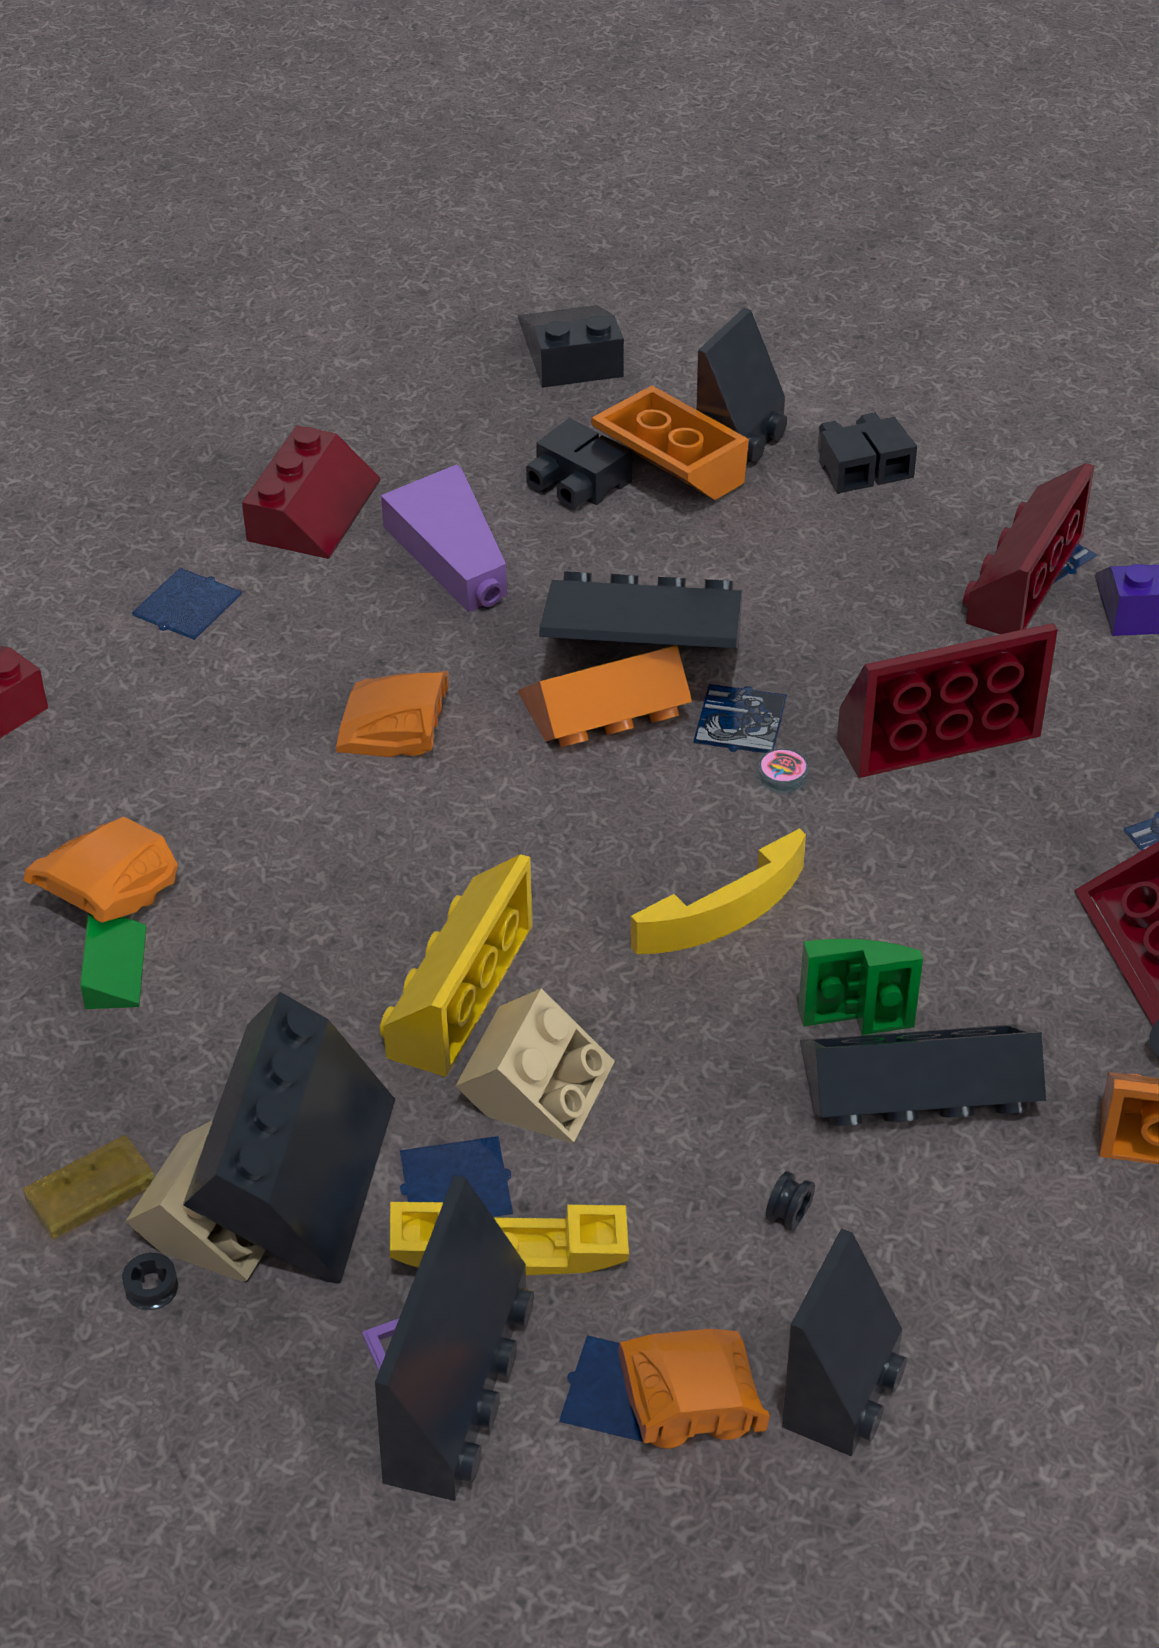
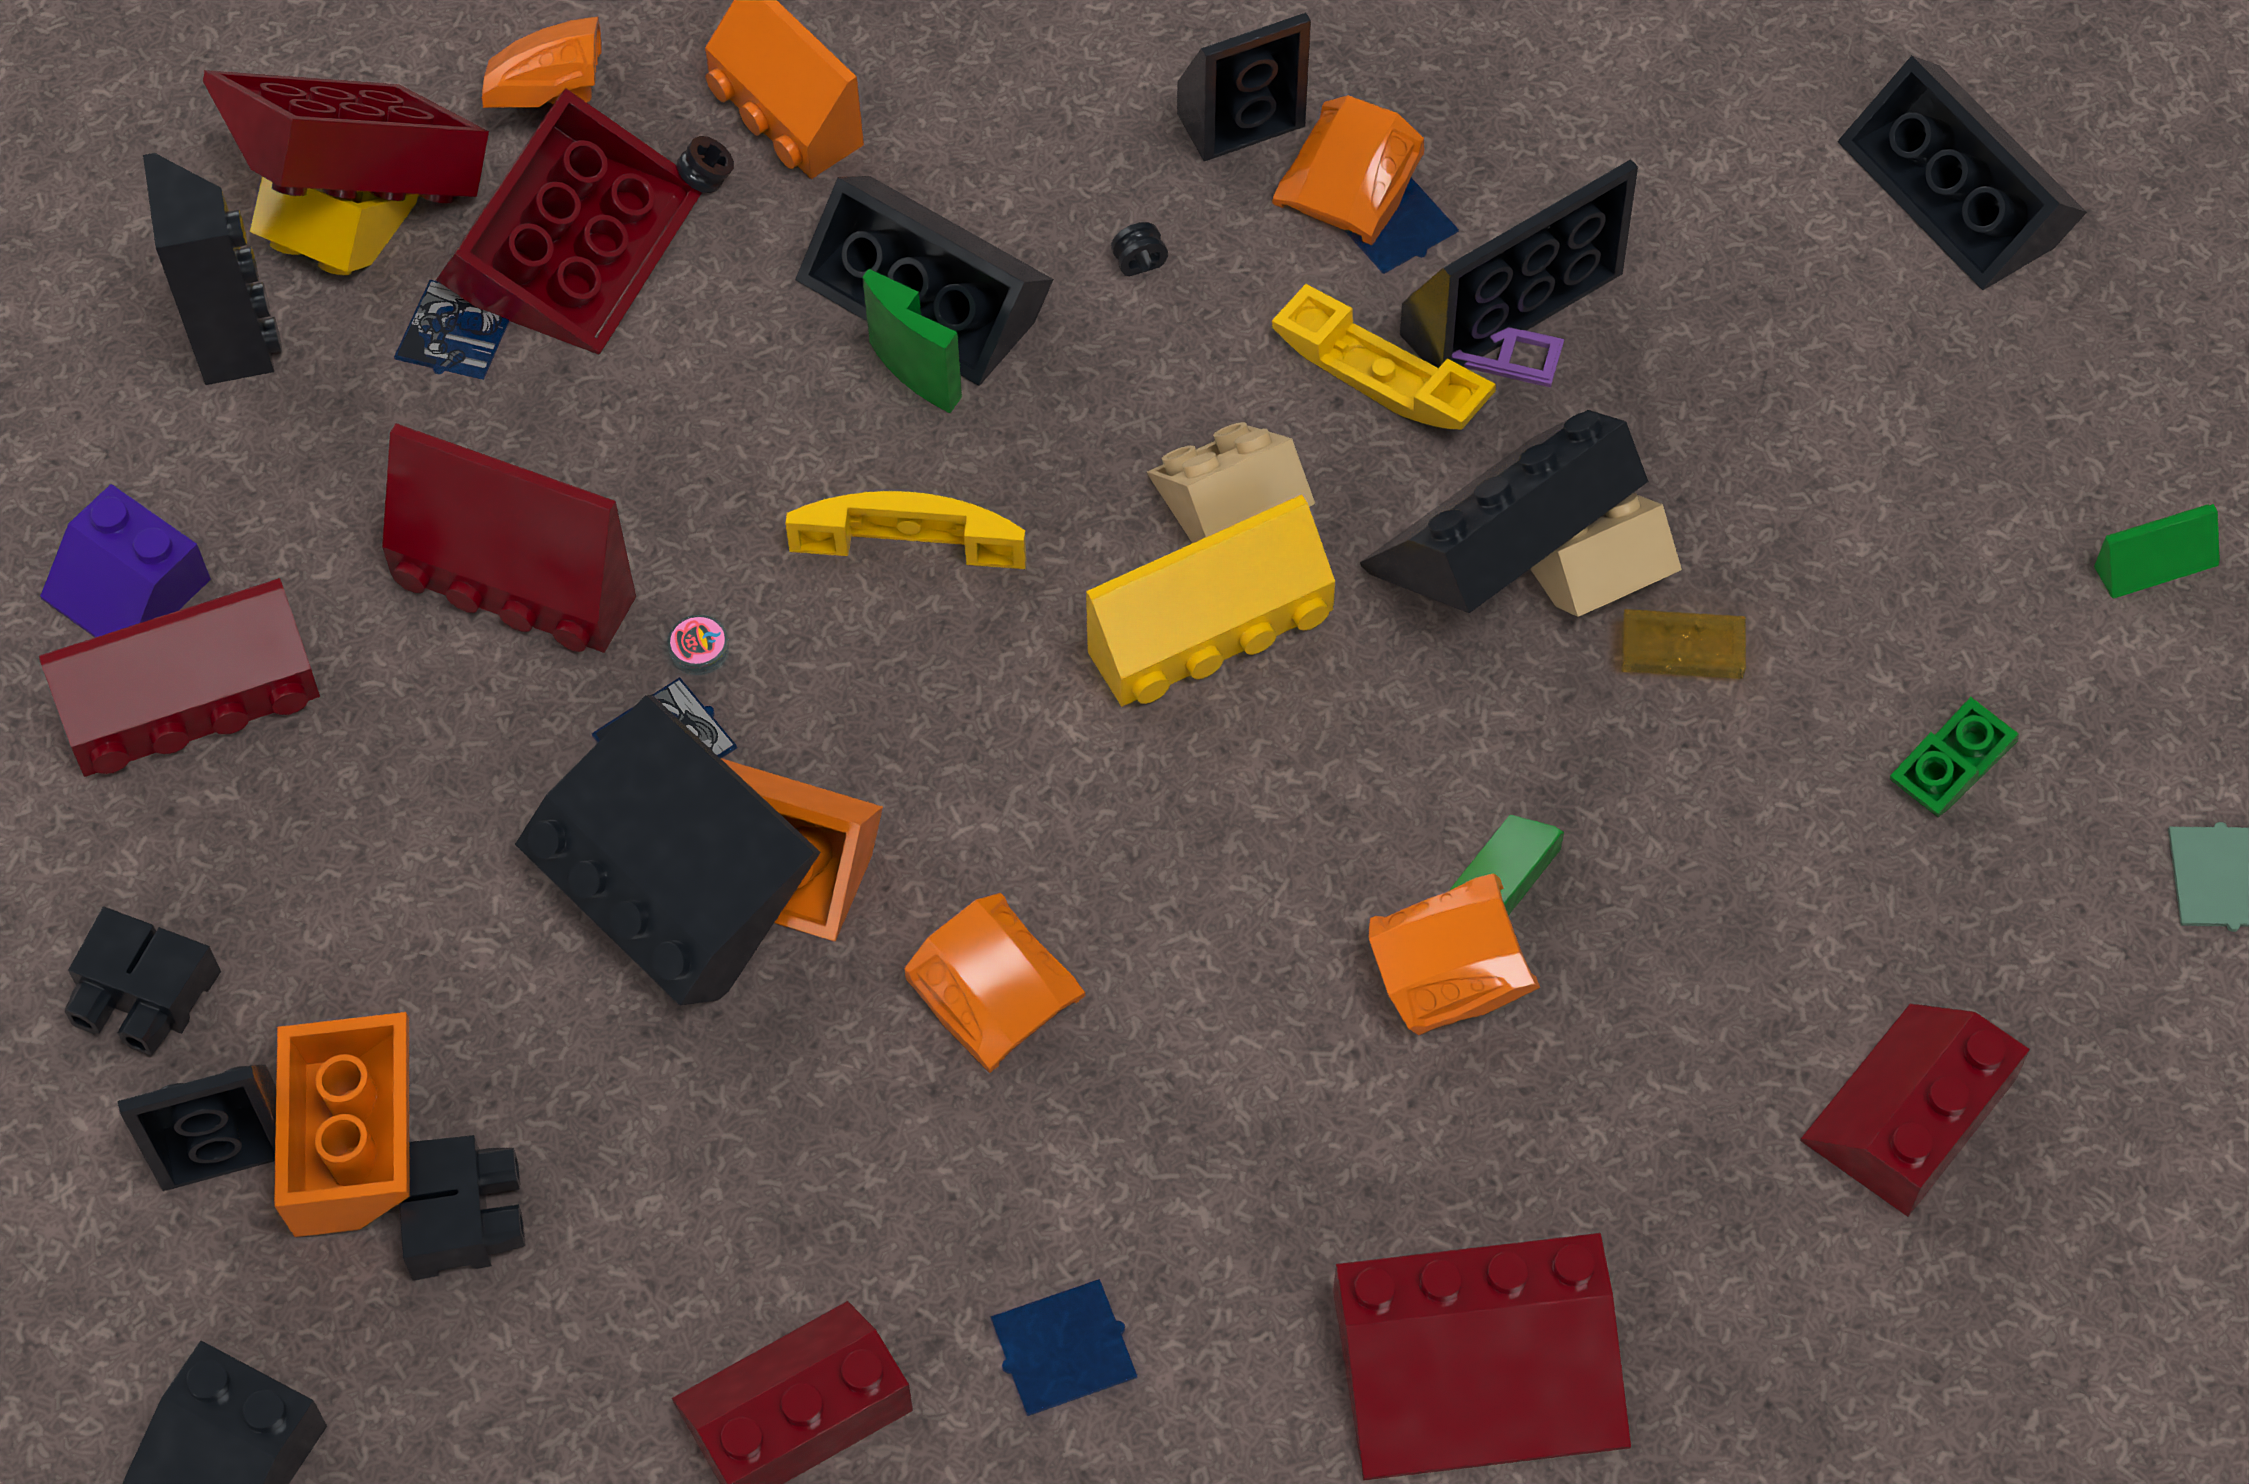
camera: 140 degrees left, 15 degrees up
(166, 1285) = (1697, 513): black bush -> none
(432, 1168) = (1373, 457): clear blue piece -> none
(448, 536) = (702, 1204): medium lavender slope -> none

